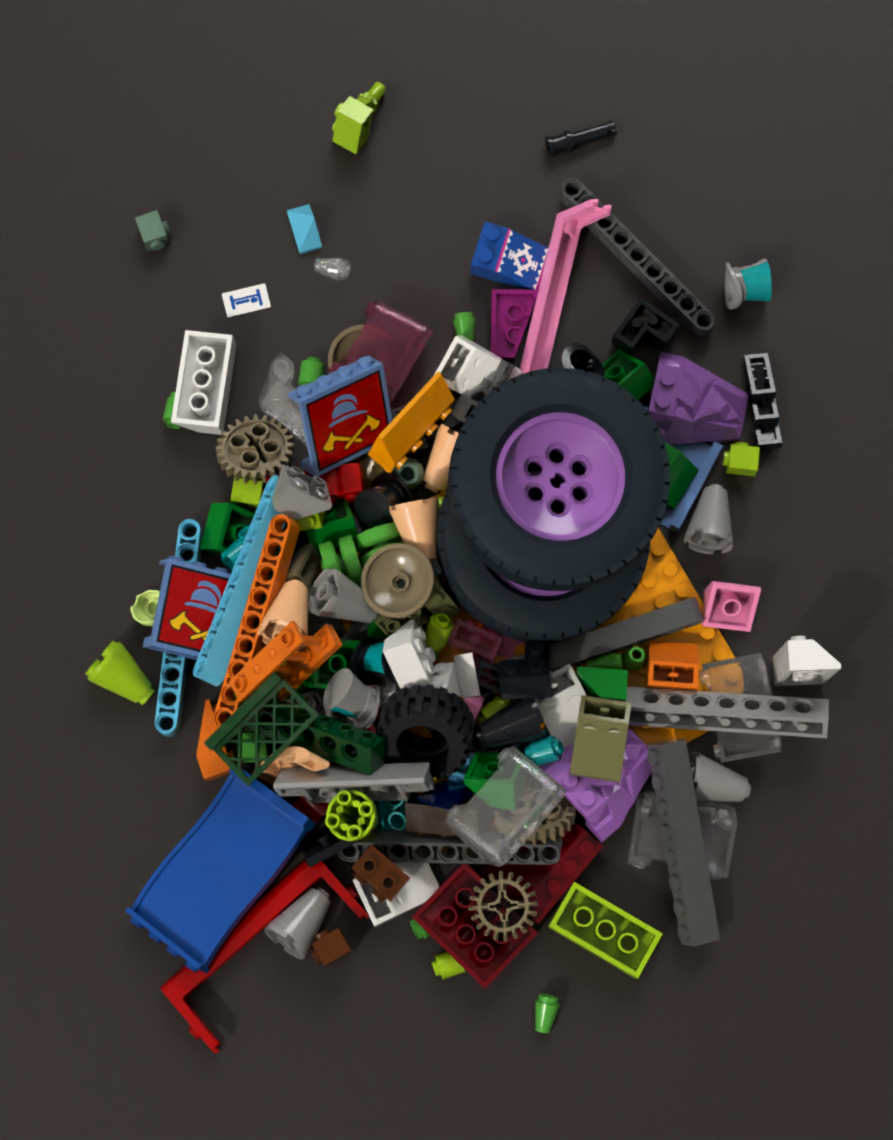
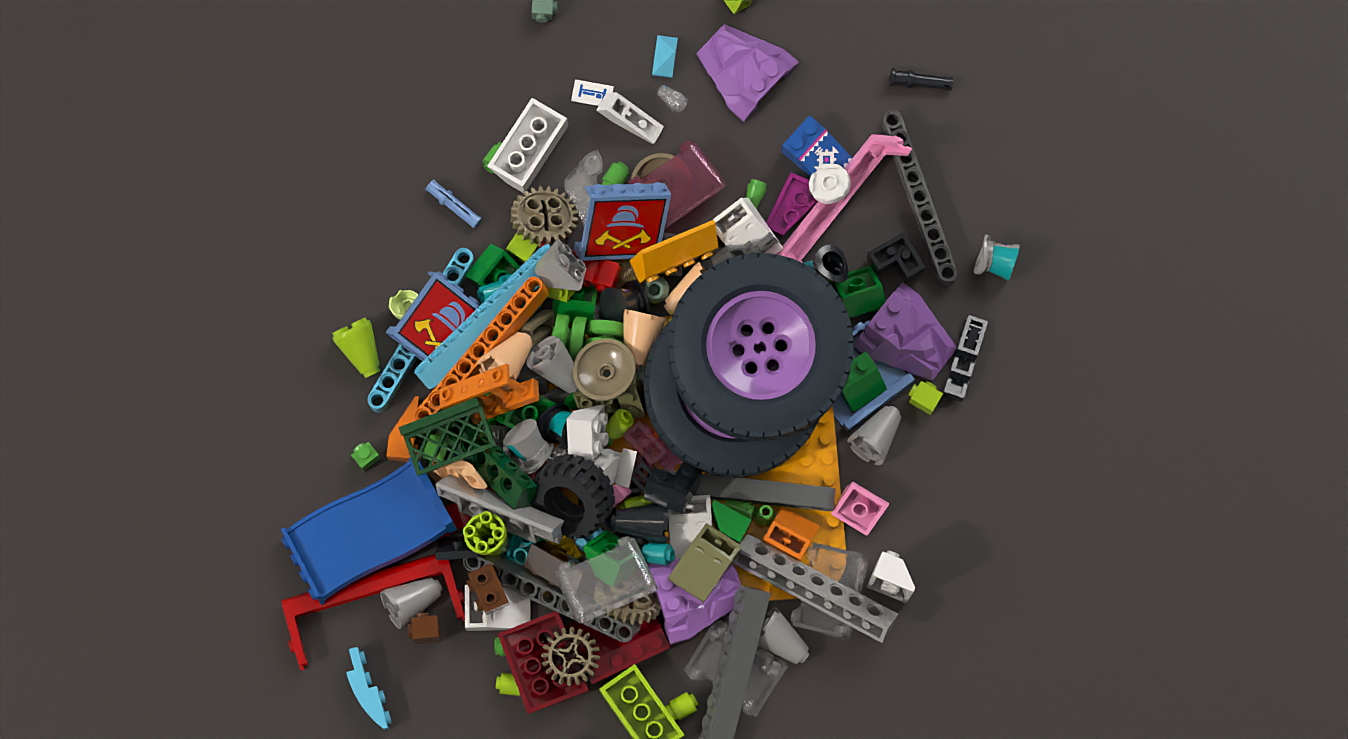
camera: 20 degrees right, 0 degrees up
(151, 478) = (446, 198): none -> medium blue pin
(180, 788) = (365, 456): none -> bright green brick
(296, 306) = (629, 117): none -> white slope
(304, 1050) = (369, 698): none -> medium azure slope
(392, 205) = (744, 68): none -> medium lavender wedge
(445, 794) = (565, 551): clear blue piece -> none
(539, 282) = (829, 183): none -> white tile
(643, 902) = (682, 706): none -> lime brick

